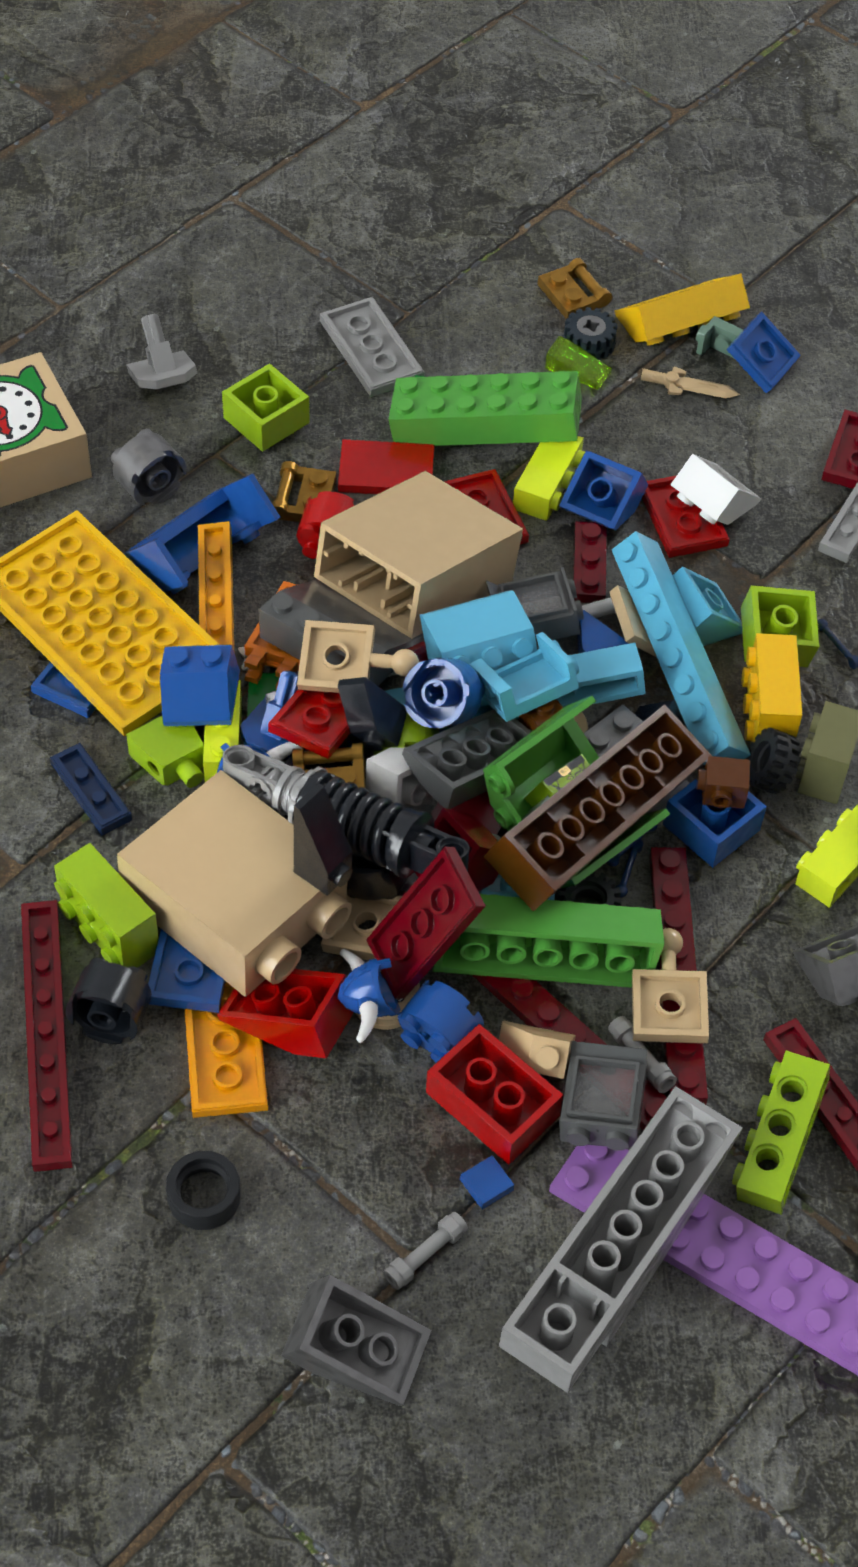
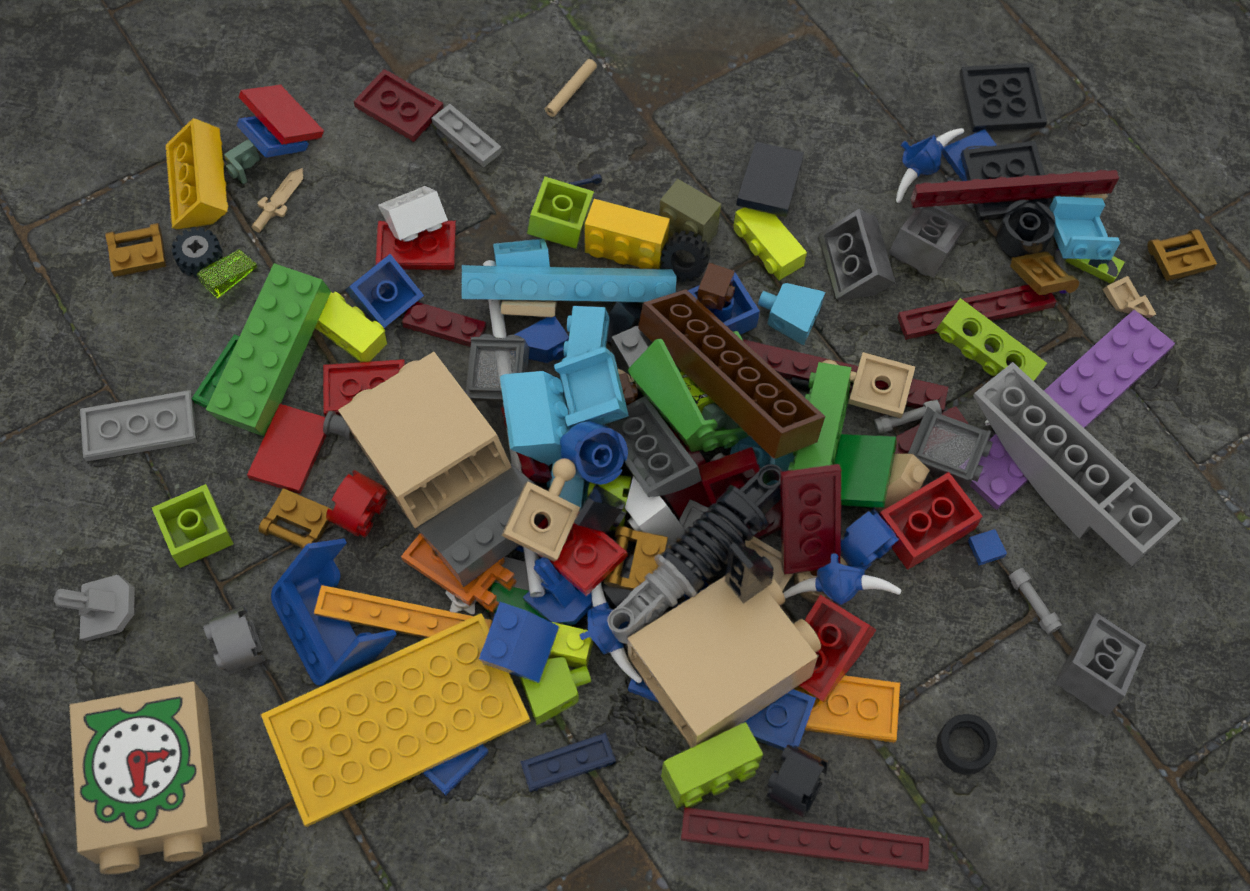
camera: 75 degrees left, 10 degrees up
(536, 1001) = (865, 468): none -> green tile
(750, 900) = (793, 310): none -> medium azure torso
(794, 352) = (281, 114): none -> red tile

